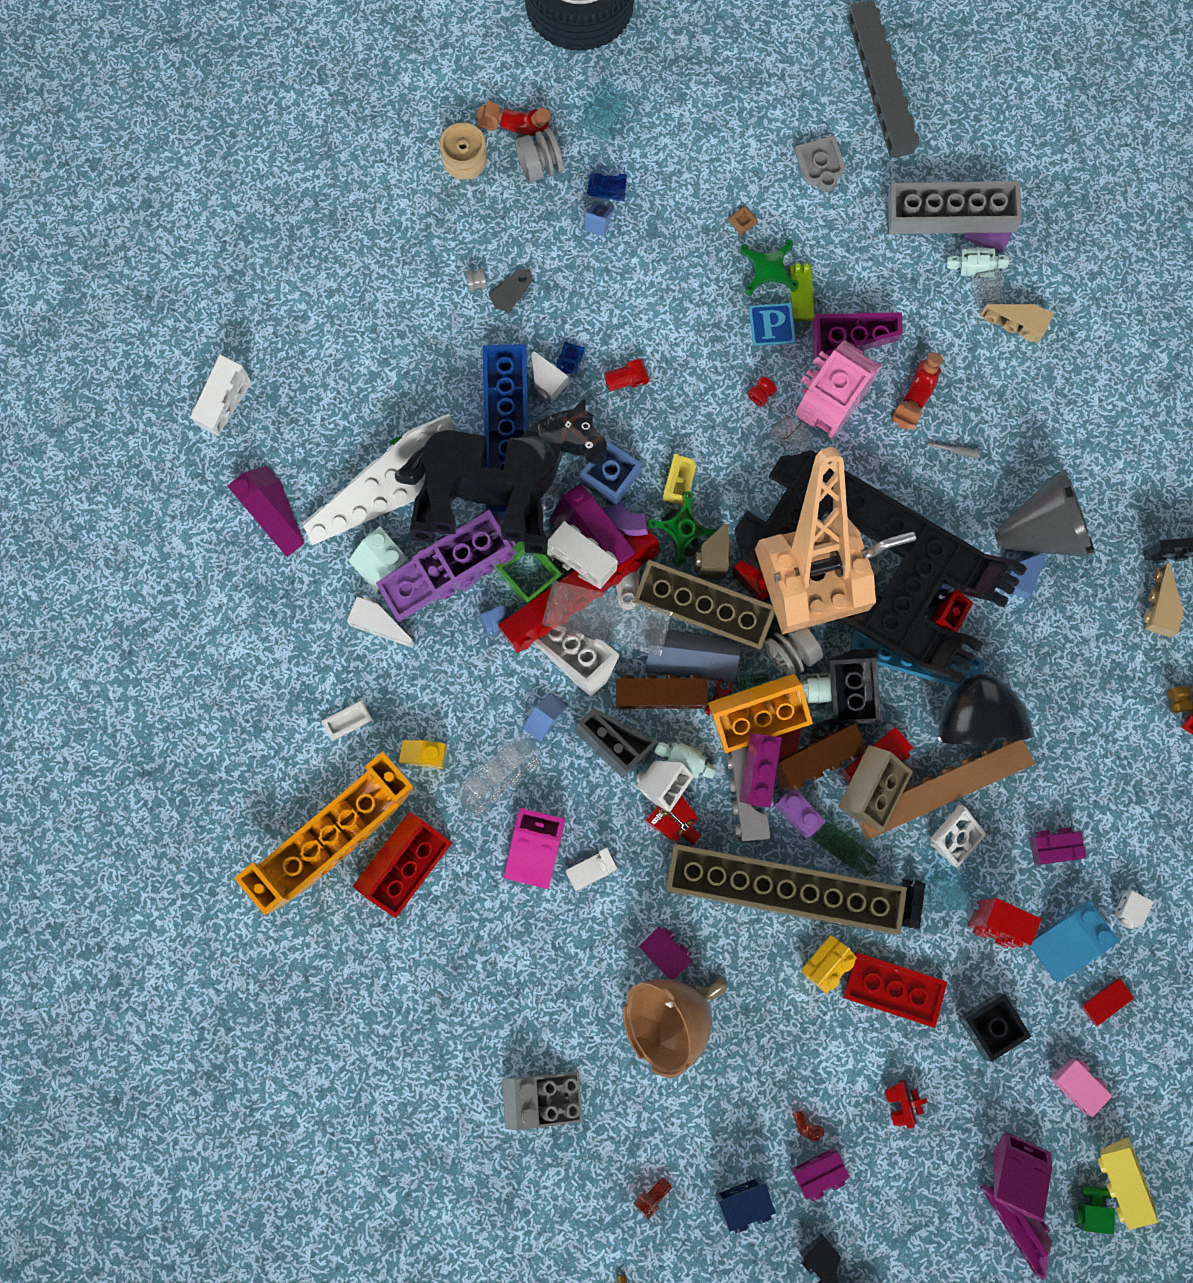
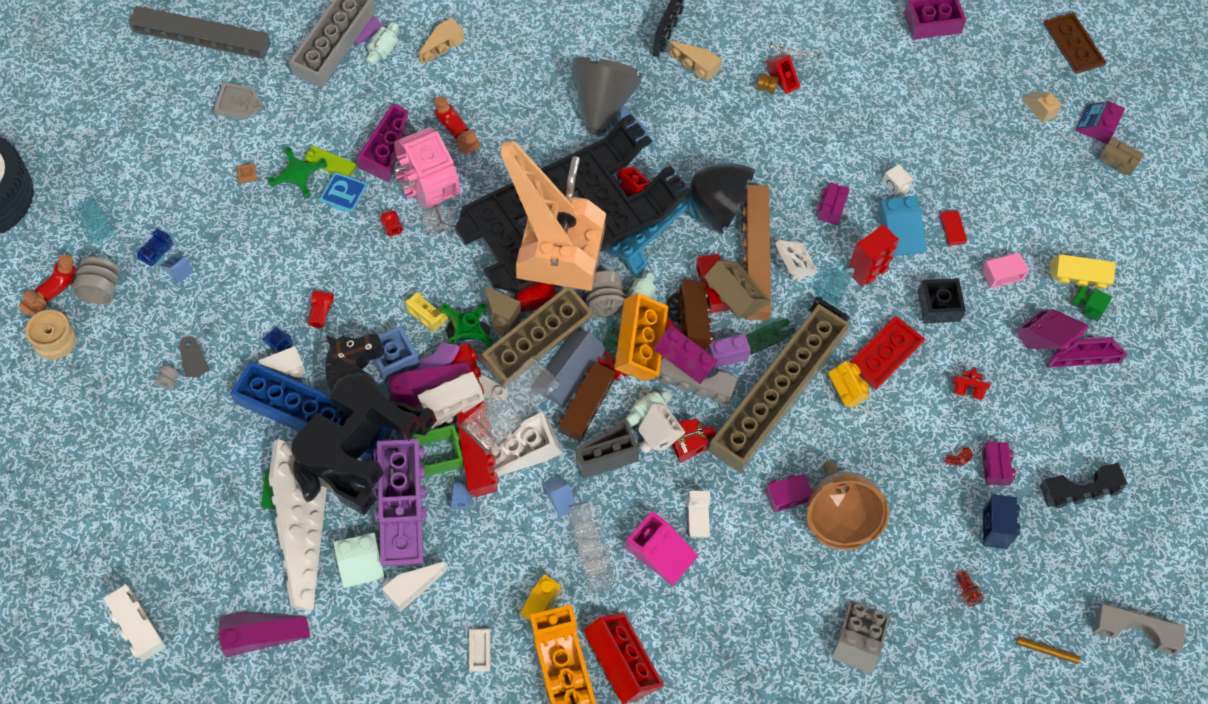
camera: 65 degrees left, 15 degrees down
(855, 687) = (656, 264): black slope -> none
(974, 453) = (513, 124): light grey piece -> none
(987, 287) = (405, 48): clear piece -> none

